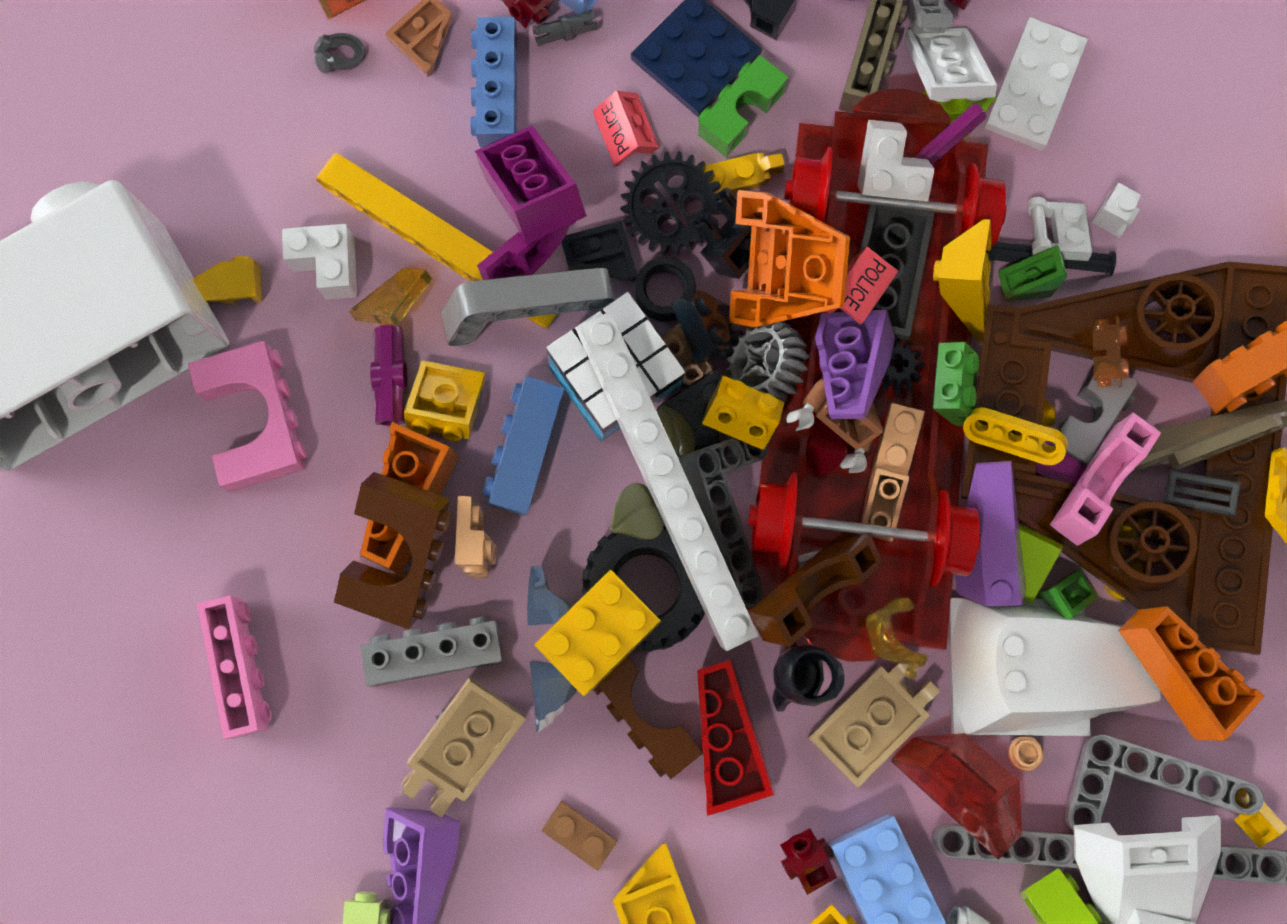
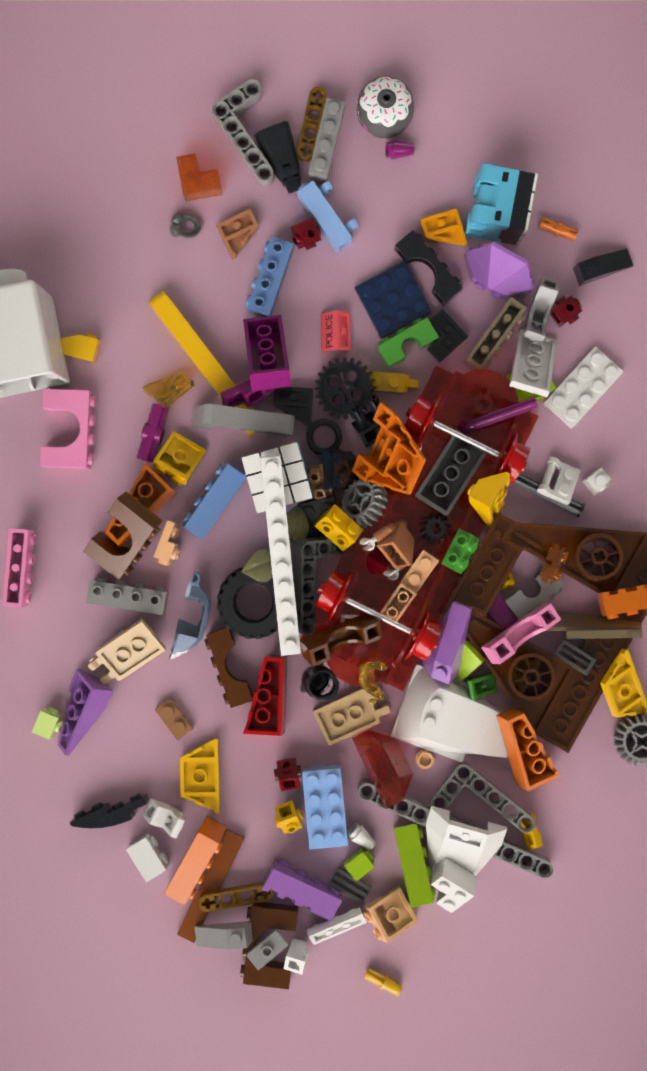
camera: 15 degrees right, 10 degrees up
(329, 252) = (142, 350): white brick -> none
(565, 28) = (322, 257): dark grey pin -> none
(597, 633) = (217, 622): yellow brick -> none
(805, 79) = (450, 336): none -> black plate
(853, 360) = (407, 523): medium lavender wedge -> none
(865, 283) = (430, 480): coral panel -> none
(886, 171) = (470, 421): white brick -> none
(1029, 445) = (480, 593): yellow plate -> none
(1034, 277) = (533, 502): bright green slope -> none

